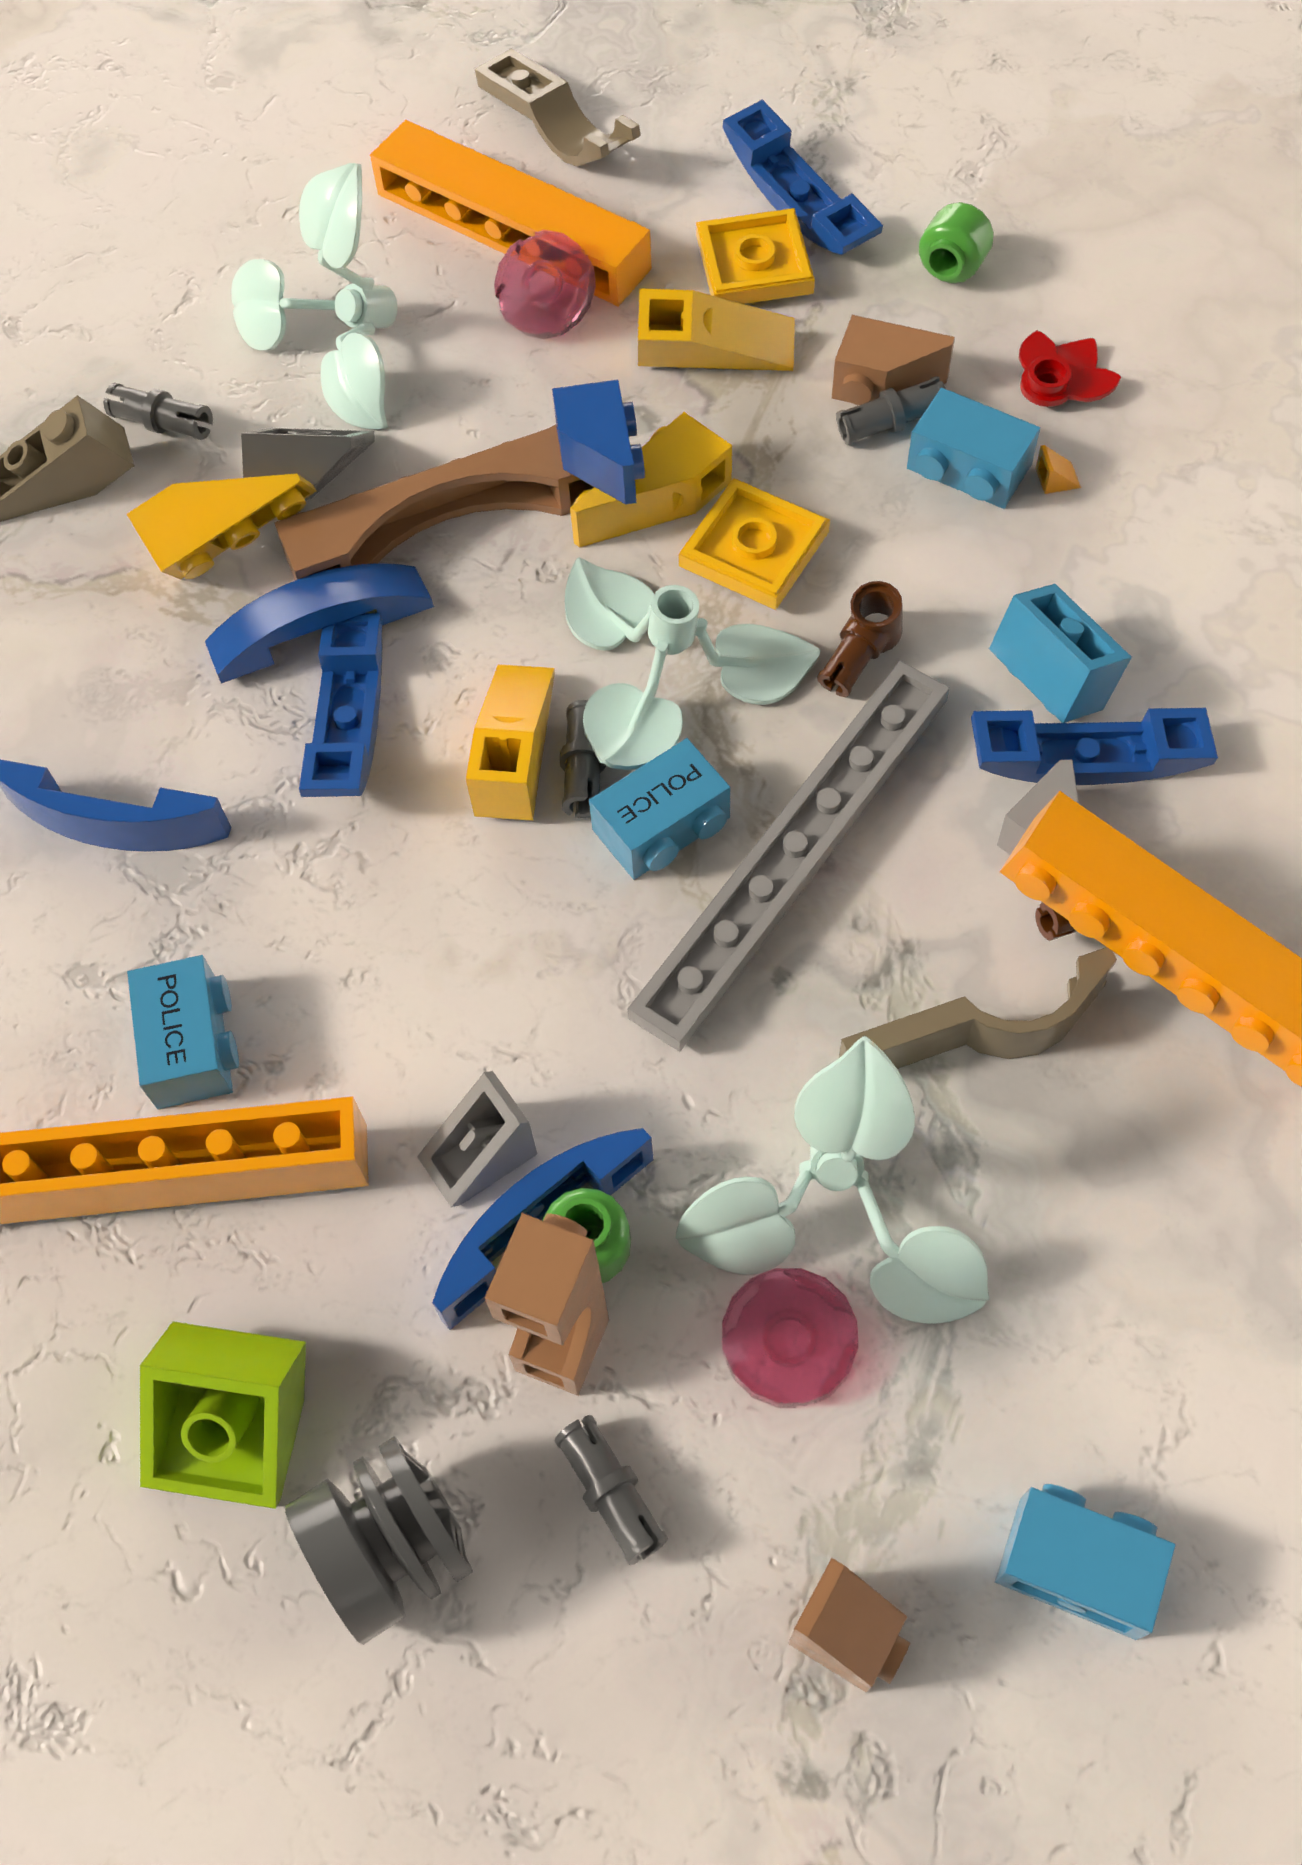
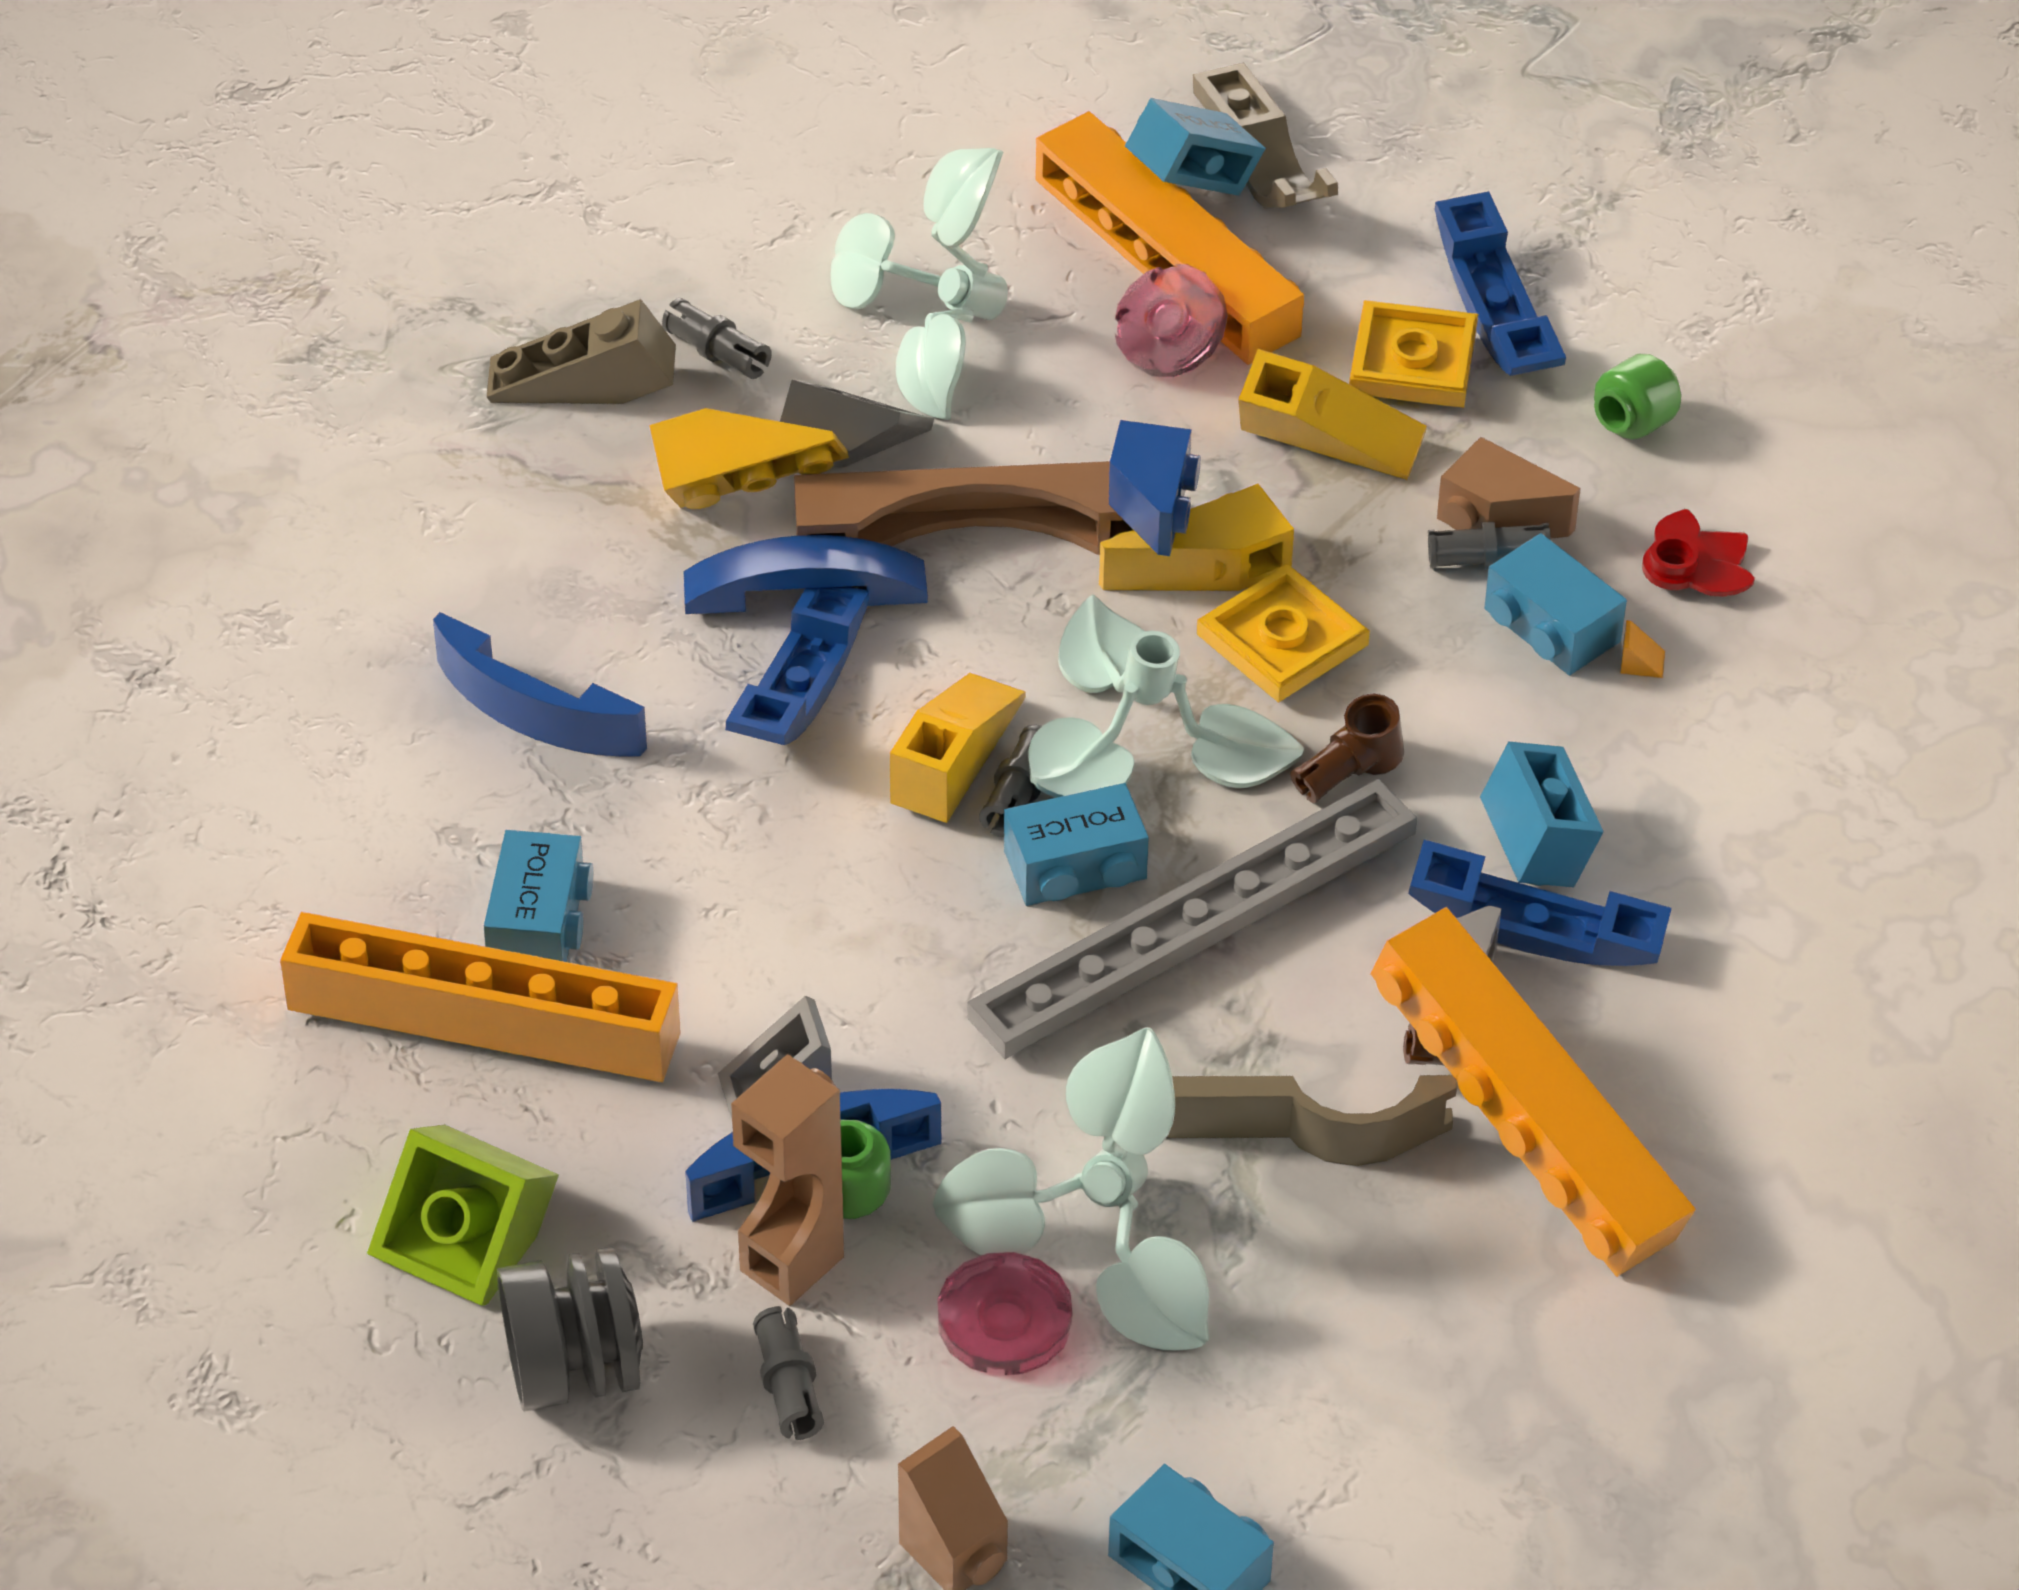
camera: 15 degrees right, 15 degrees down
(505, 126) = (1194, 147): none -> dark azure brick

